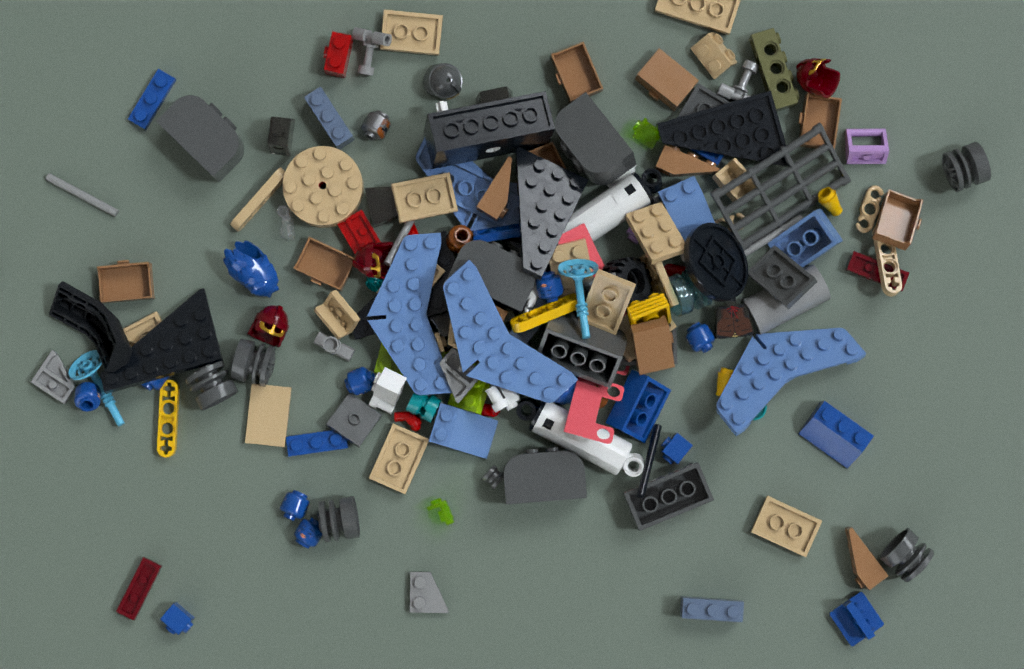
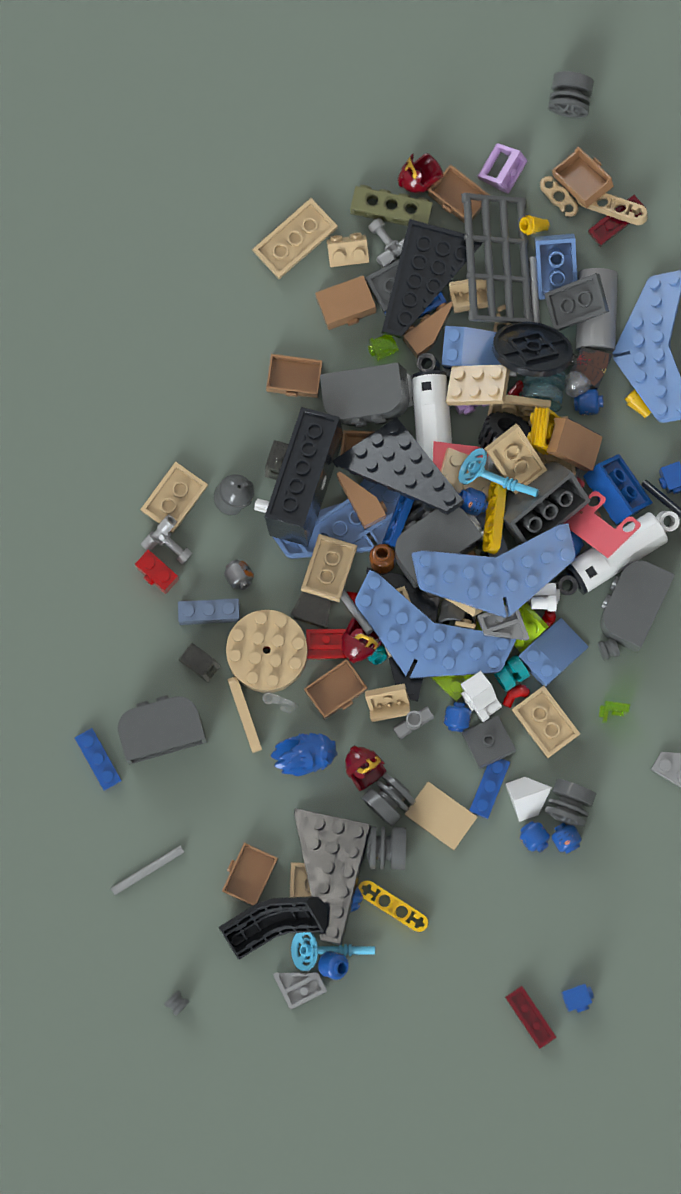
camera: 55 degrees left, 5 degrees down
(325, 479) = (527, 797): none -> white slope
(708, 318) = (576, 384): none -> clear cone

